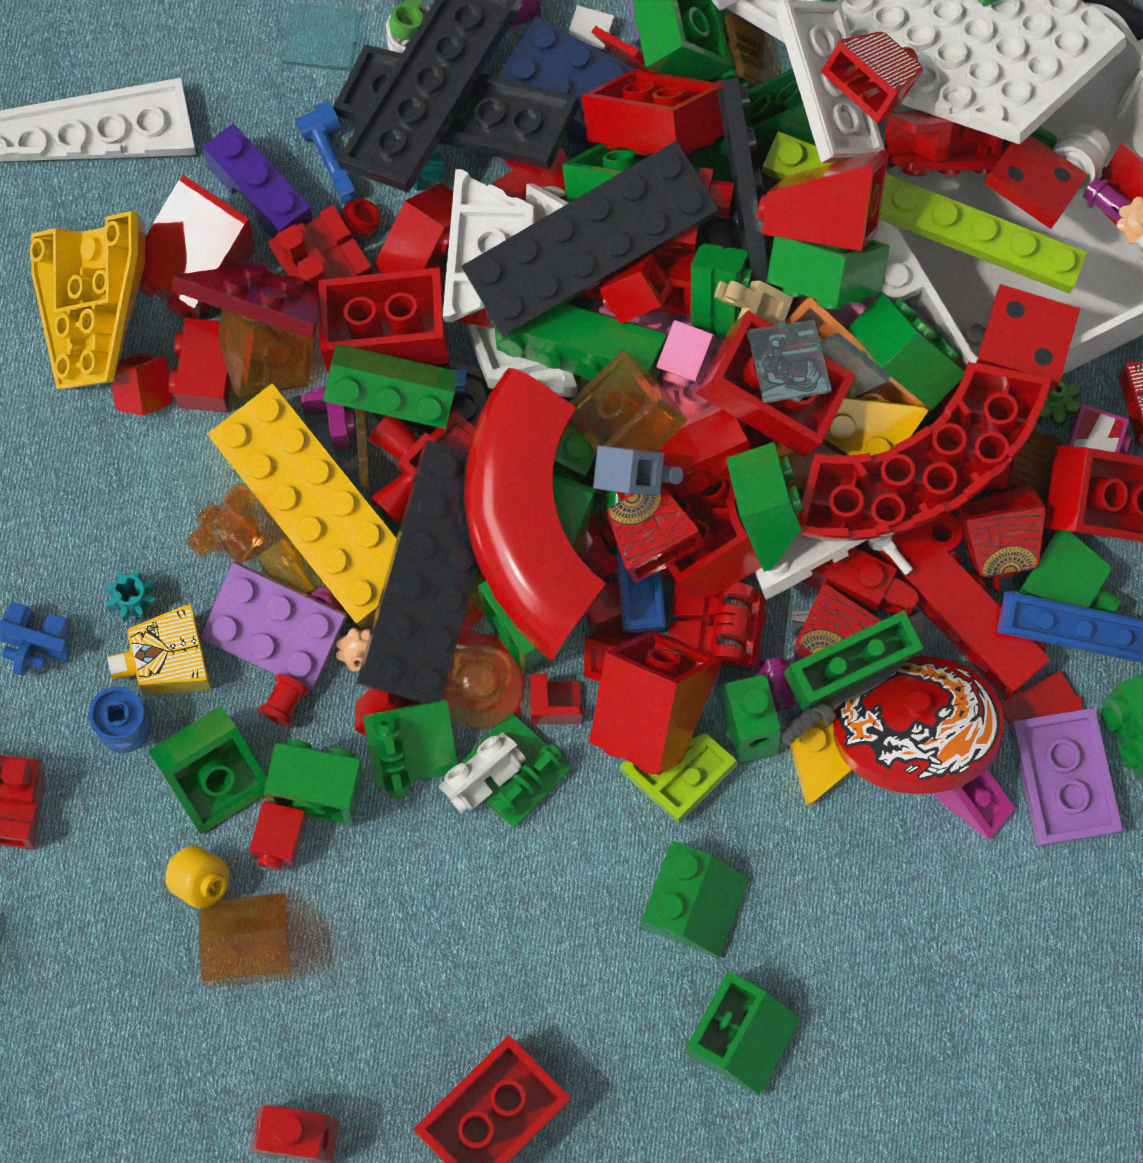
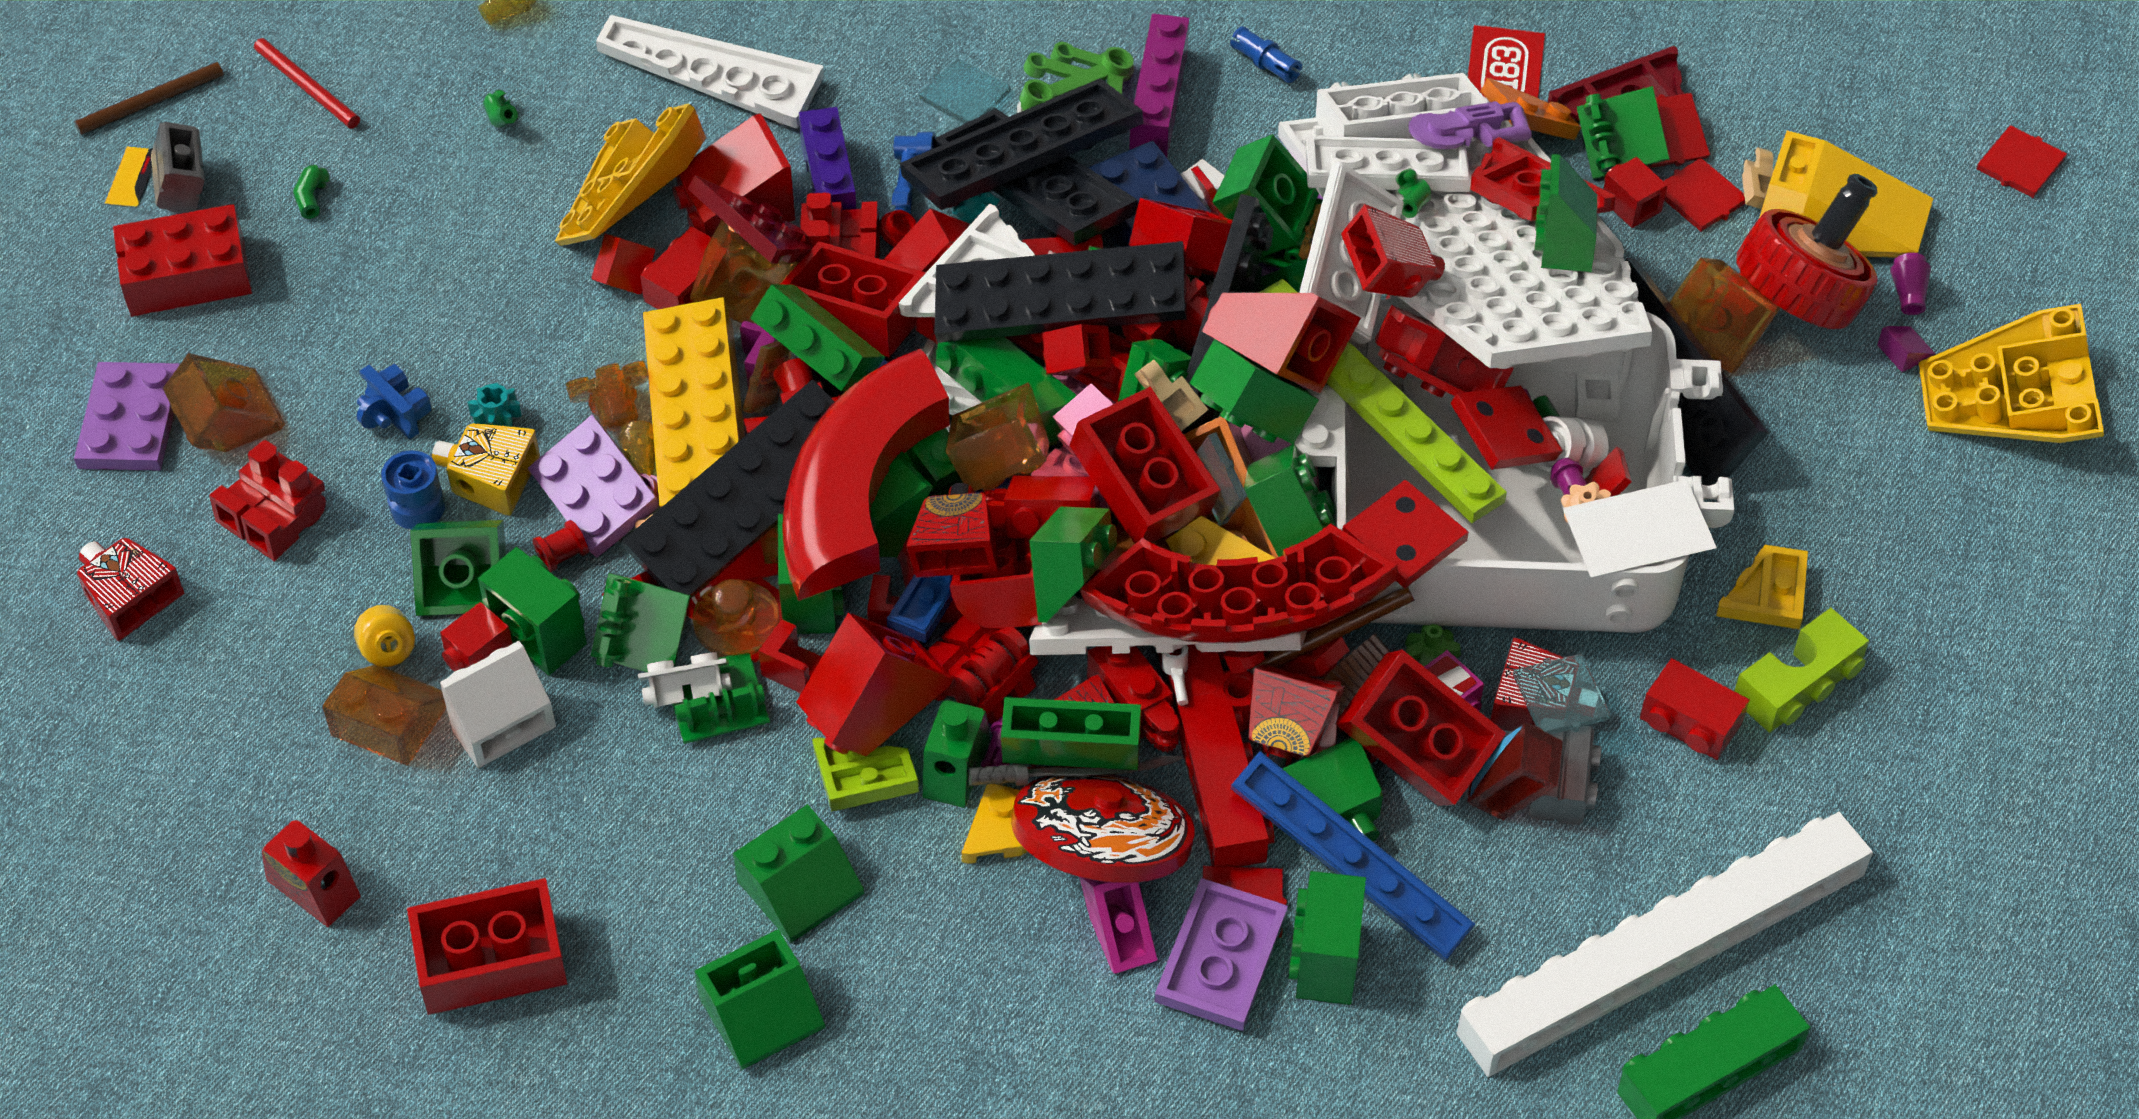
camera: 35 degrees right, 20 degrees down
(346, 890) = (497, 704): none -> white slope
(633, 471) = (964, 467): sand blue brick -> none
(789, 361) = (1161, 443): clear light blue piece -> none

